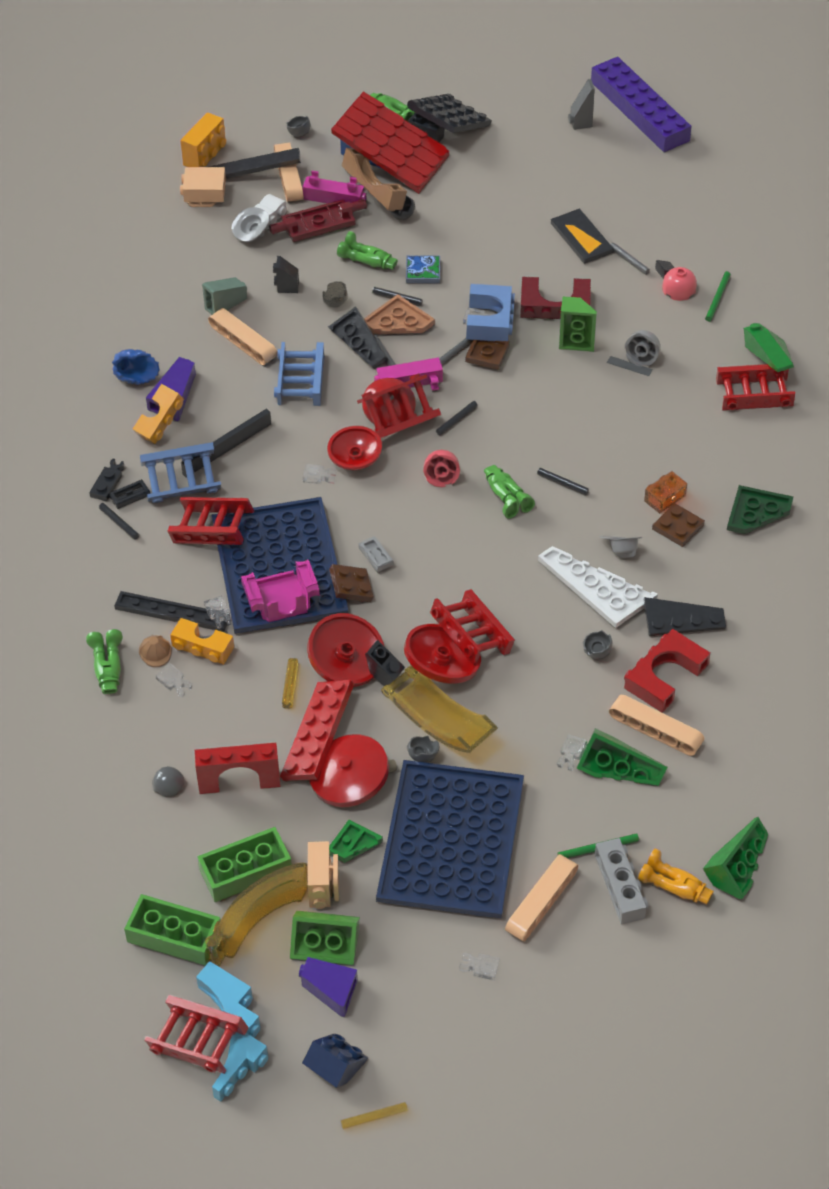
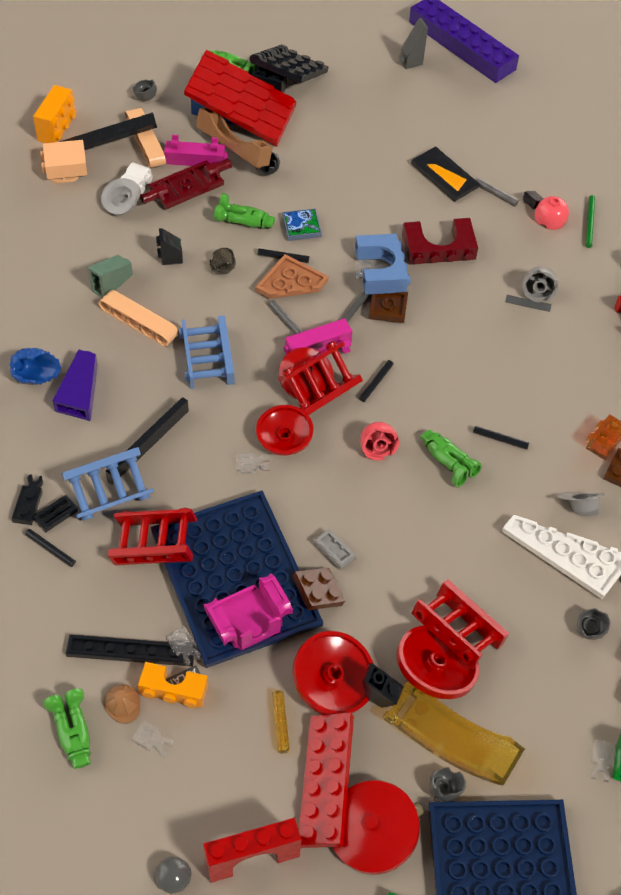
camera: 15 degrees left, 5 degrees up
(153, 427) = (67, 434): light orange arch -> none
(359, 337) = (254, 301): black wing -> none
(577, 325) = (474, 268): bright green slope -> none

